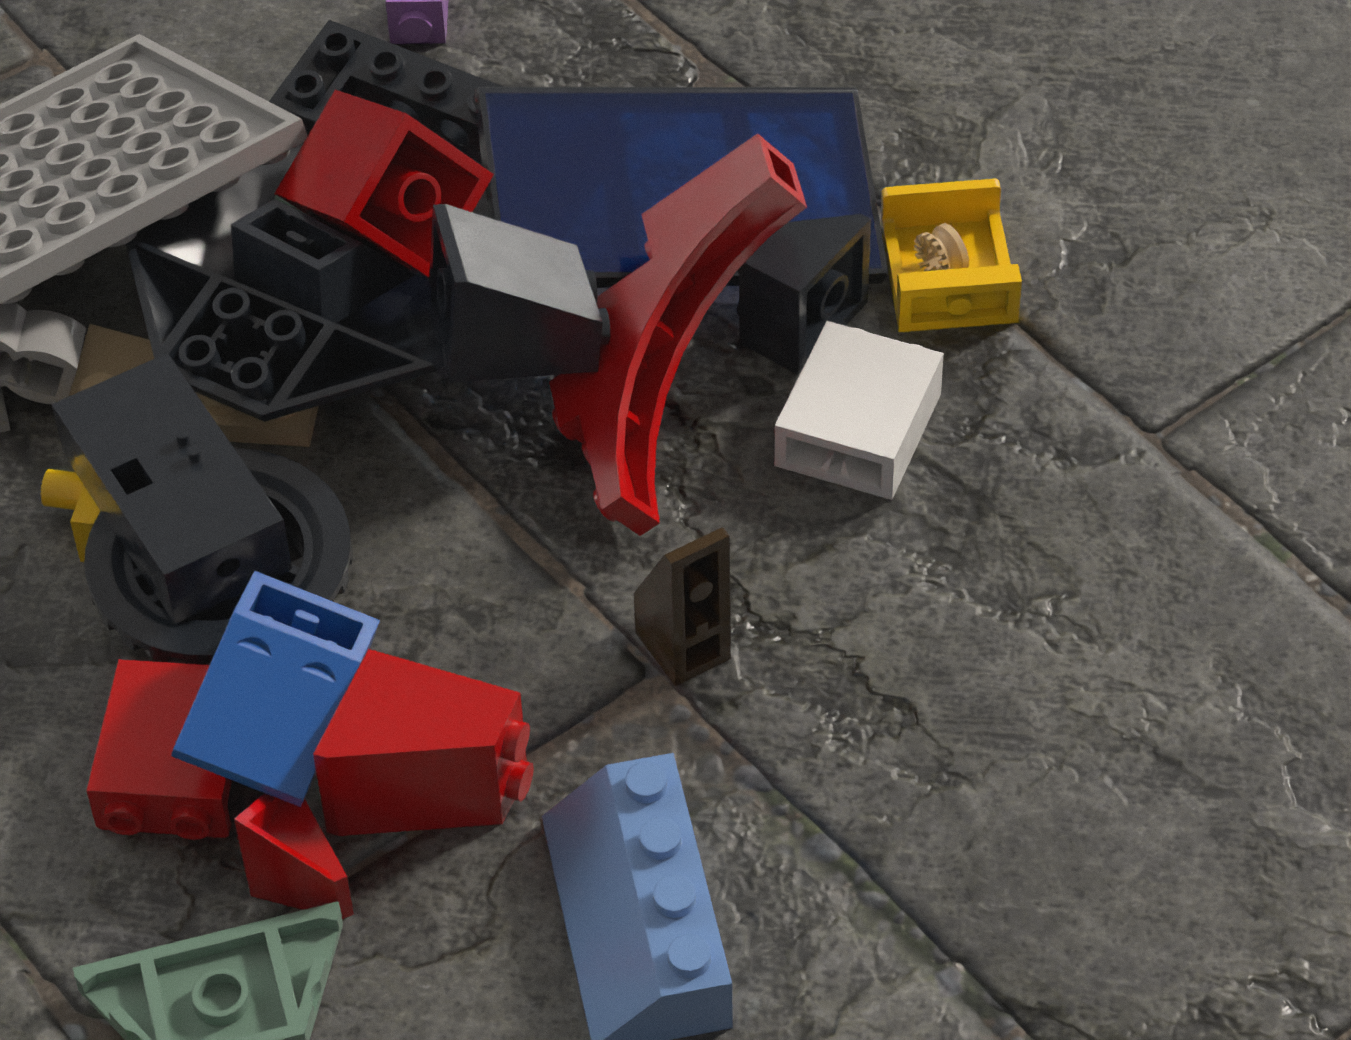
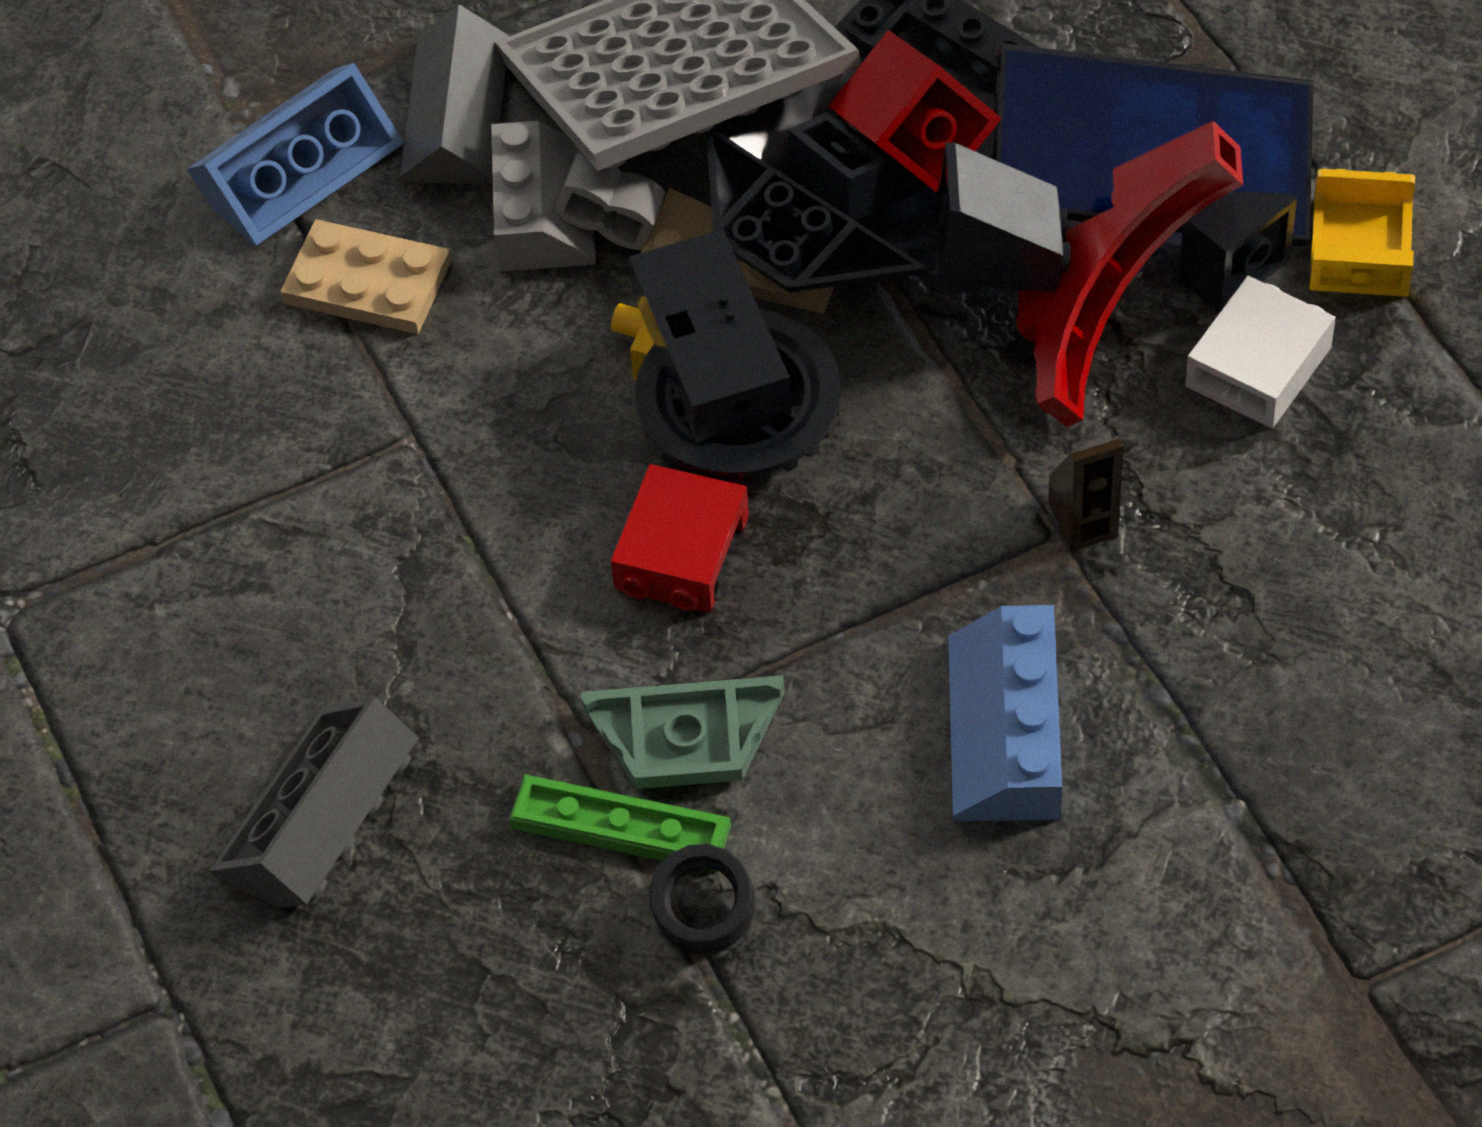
camera: 15 degrees right, 5 degrees up
(274, 687) = (763, 507): blue slope -> none
(290, 856) = (752, 632): red slope -> none
(421, 751) = (864, 572): red slope -> none
(941, 249) = (1355, 229): tan bush -> none

